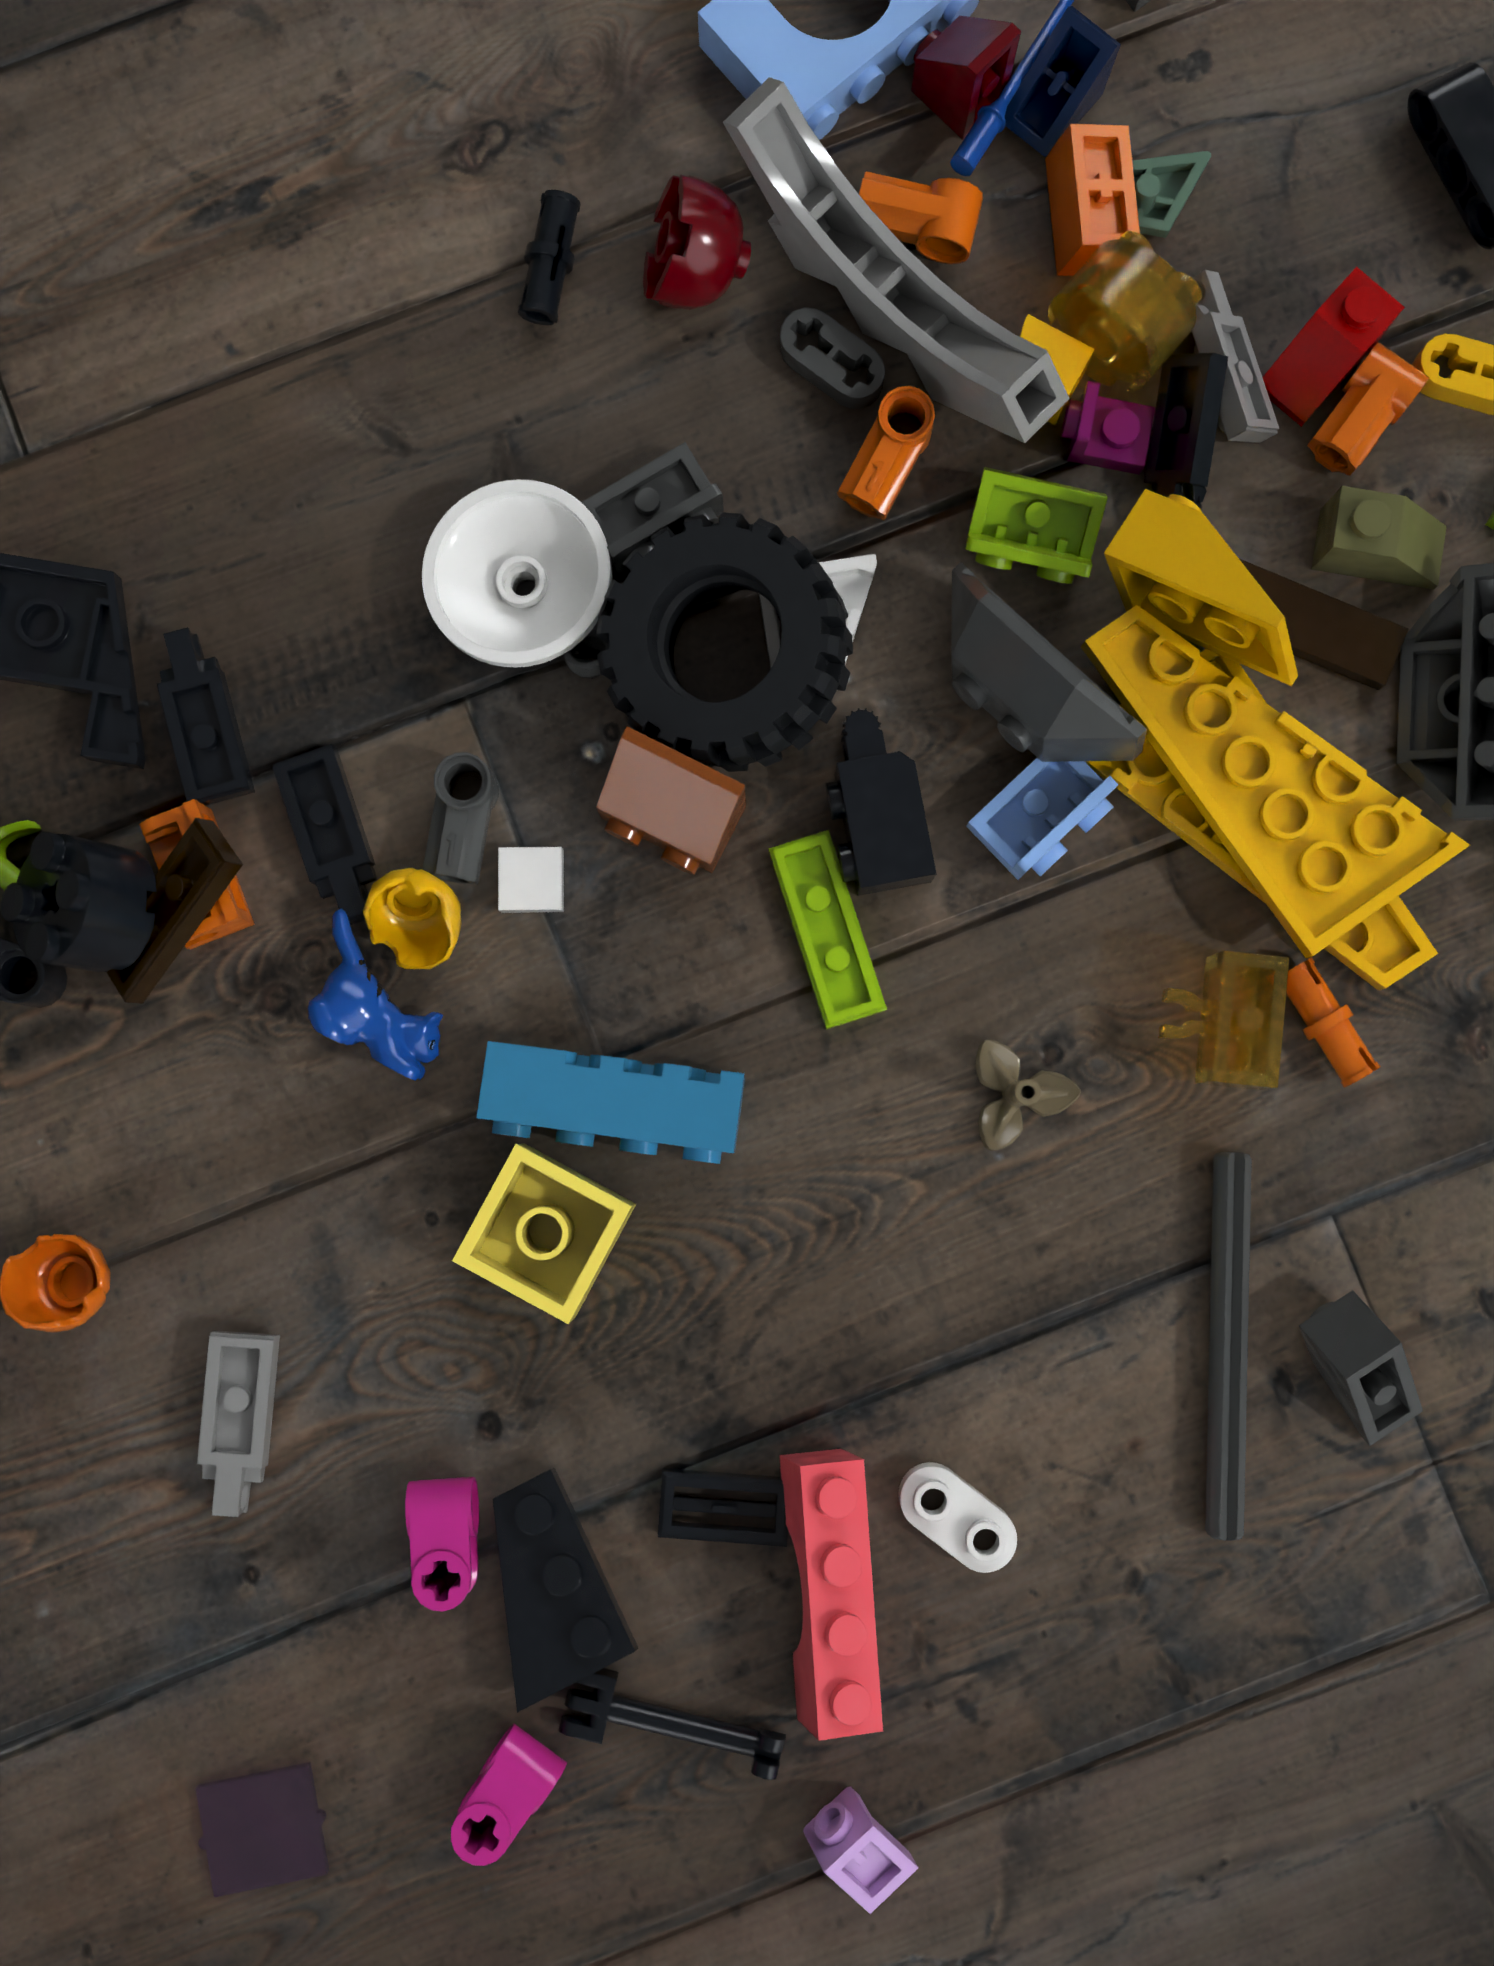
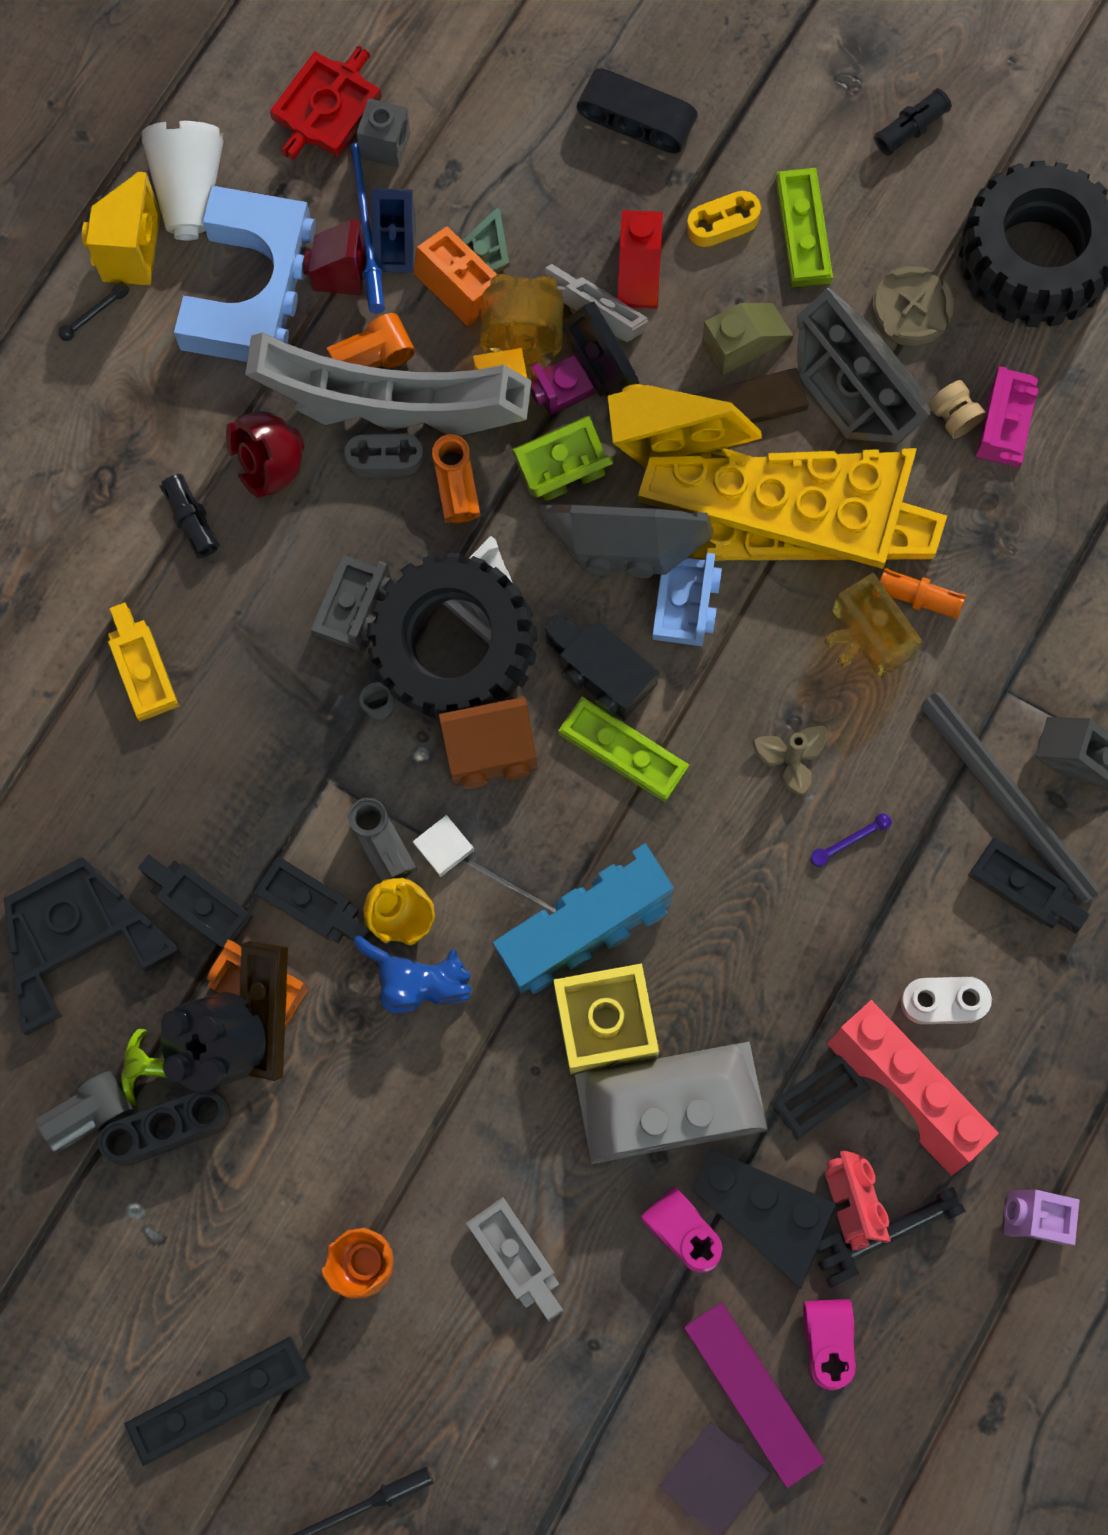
camera: 40 degrees left, 10 degrees down
(354, 394) = (140, 665): none -> yellow hinge
(378, 1777) = (754, 1395): none -> magenta tile
(493, 544) = (291, 669): white dish -> none
(547, 1388) = (670, 1102): none -> light grey windscreen
(655, 1694) = (866, 1218): none -> coral hinge
(951, 1236) = (820, 856): none -> dark purple hinge
(1160, 1465) = (1027, 887): none -> black hinge
(1372, 400) = (683, 265): orange piece -> none

